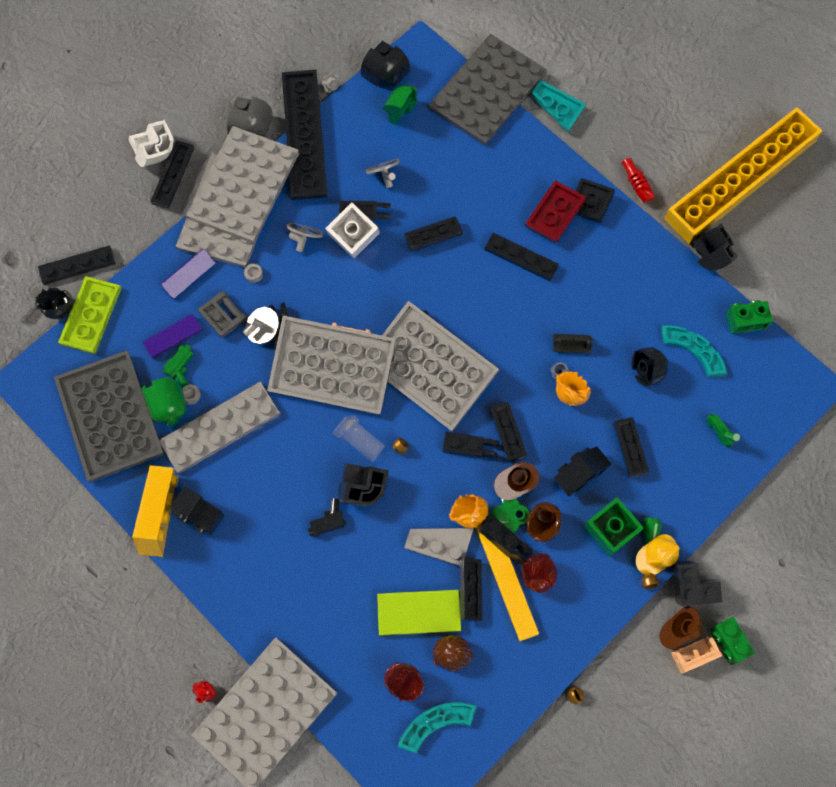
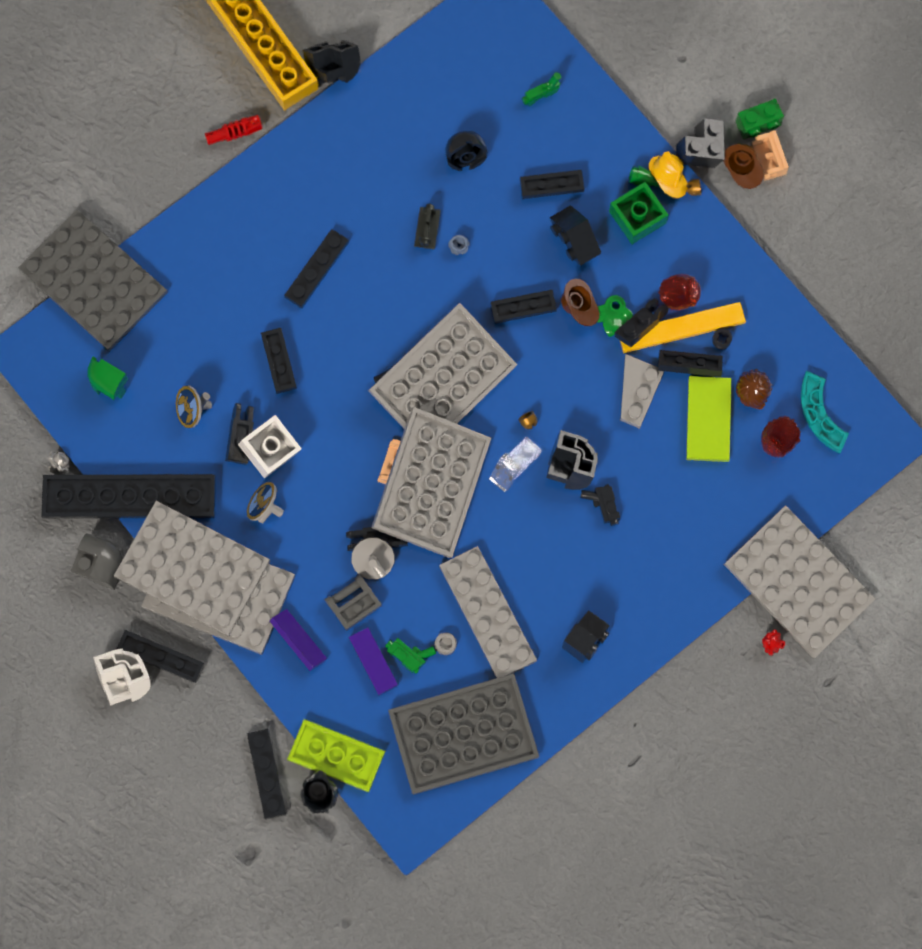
camera: 85 degrees left, 5 degrees up
(155, 511) = (579, 680): yellow wedge -> none
(165, 400) = (456, 666): green cylinder -> none
(253, 273) = (303, 566): light grey tile -> none
(385, 65) = (49, 393): black brick -> none
(469, 445) = (533, 350): black hinge -> none
(469, 511) = (609, 354): light orange hair -> none
(499, 626) = (722, 332): none -> black bush
(544, 522) = (627, 280): reddish brown hair -> none
(555, 211) = (268, 223): dark red plate -> none
(558, 104) = (122, 203): teal wing -> none
(571, 696) = (801, 281): pearl gold hinge -> none
(572, 389) = (484, 232): light orange hair -> none
(597, 199) = (256, 183): black plate -> none
(698, 346) = (443, 99): teal tile -> none
(749, 316) = (417, 40): green brick -> none

